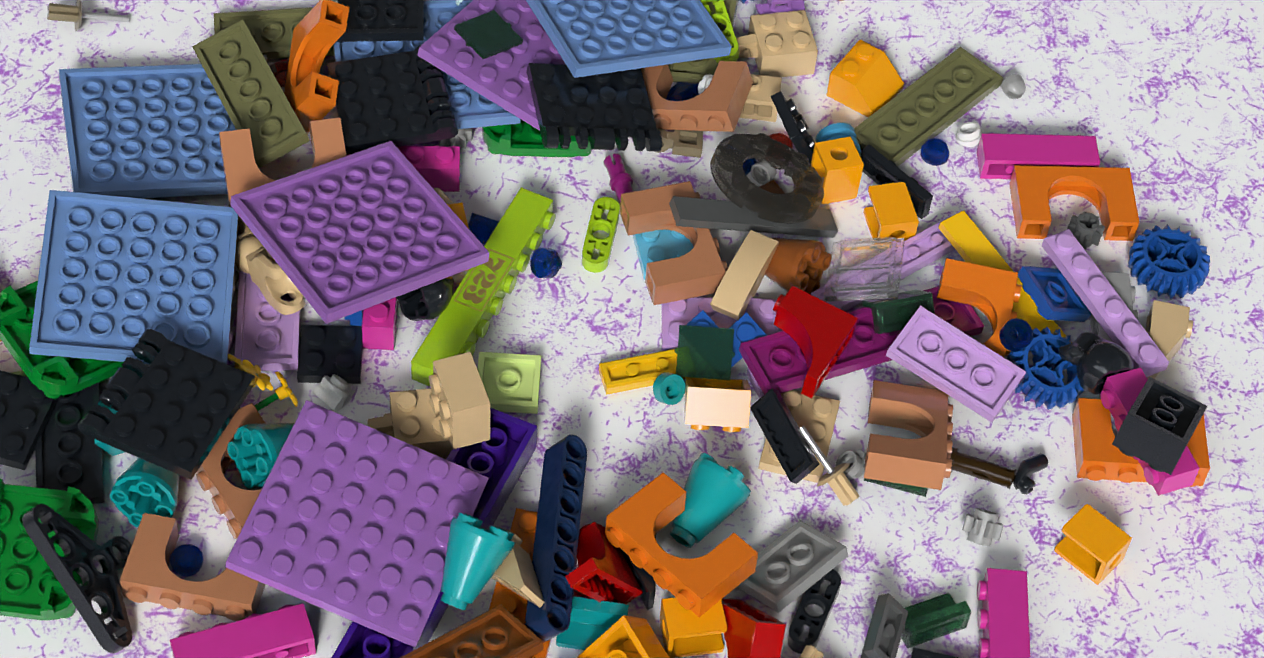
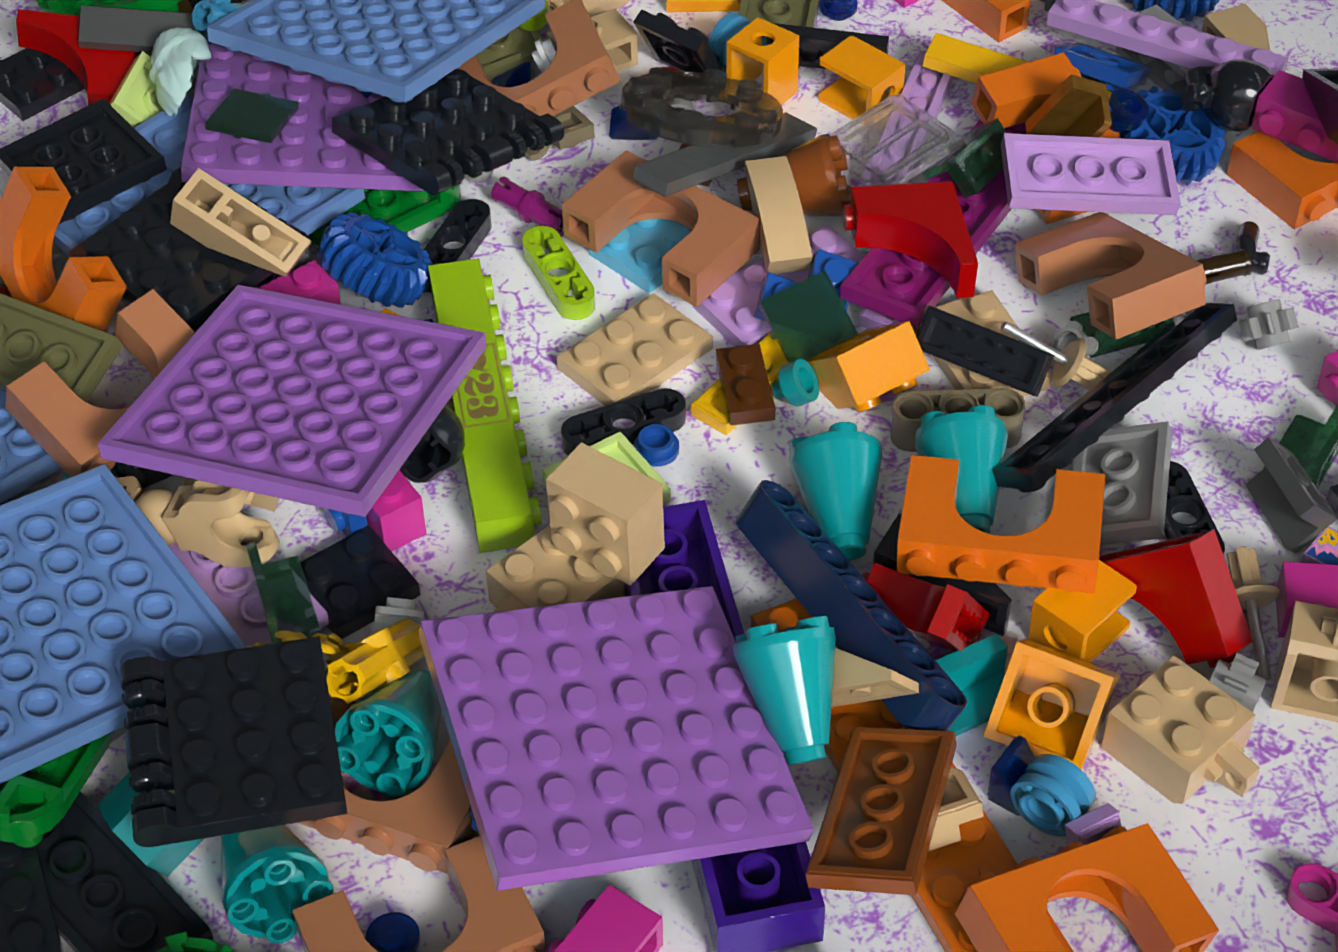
camera: 30 degrees left, 5 degrees down
(276, 340) = (283, 595): none -> clear green panel
(287, 405) = (375, 661): none -> yellow piece
(414, 104) = (235, 225): none -> tan slope
(494, 165) = (375, 259): none -> blue gear
(545, 263) = (526, 333): clear blue tile -> none
(557, 376) = (657, 445): none -> blue plate
(558, 362) = (651, 404): none -> black beam
(565, 171) = (454, 230): none -> black beam
(599, 312) = (635, 351): none -> tan plate
(626, 466) = (839, 483): none -> teal cone
(636, 370) = (745, 384): none -> reddish brown plate
(752, 467) = (912, 405): none -> dark tan beam
(841, 511) = (1113, 398): none -> black plate
(982, 316) = (1073, 109): none -> pearl gold panel

